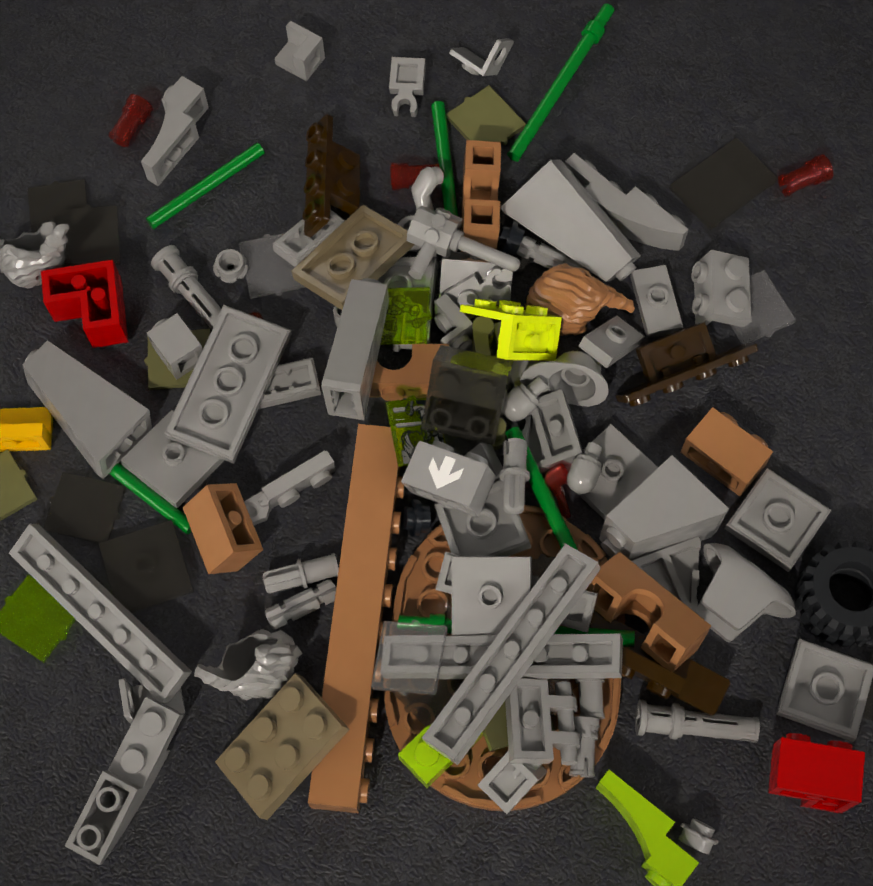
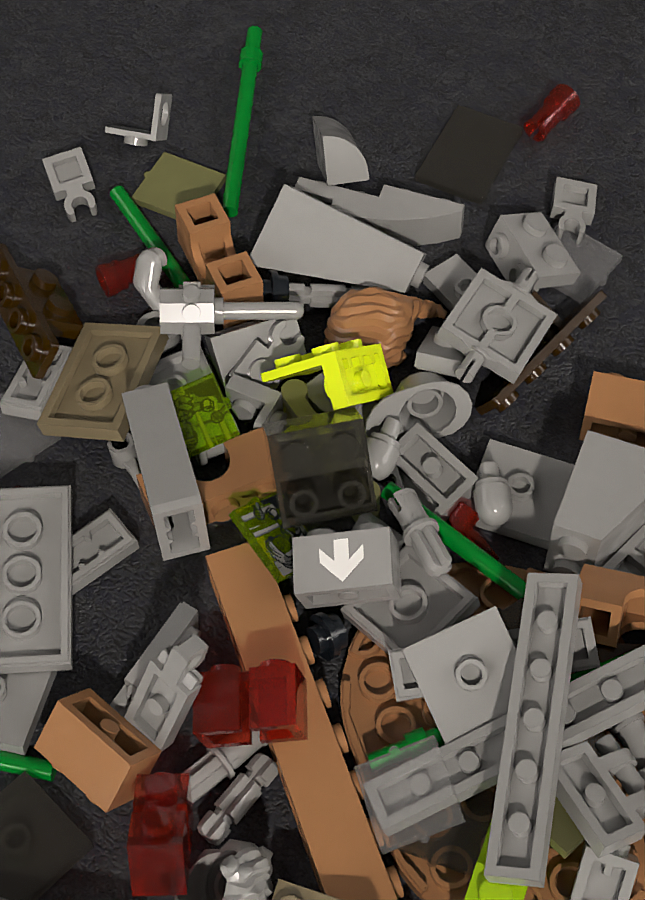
camera: 25 degrees left, 10 degrees down
(234, 606) = (160, 834): none -> clear red piece
(279, 513) = (167, 691): none -> light grey hinge
(326, 544) = (261, 699): none -> clear red piece
(615, 144) = (338, 153): none -> light grey brick
(656, 340) = (496, 325): none -> light grey plate
(777, 263) = (573, 205): none -> light grey plate

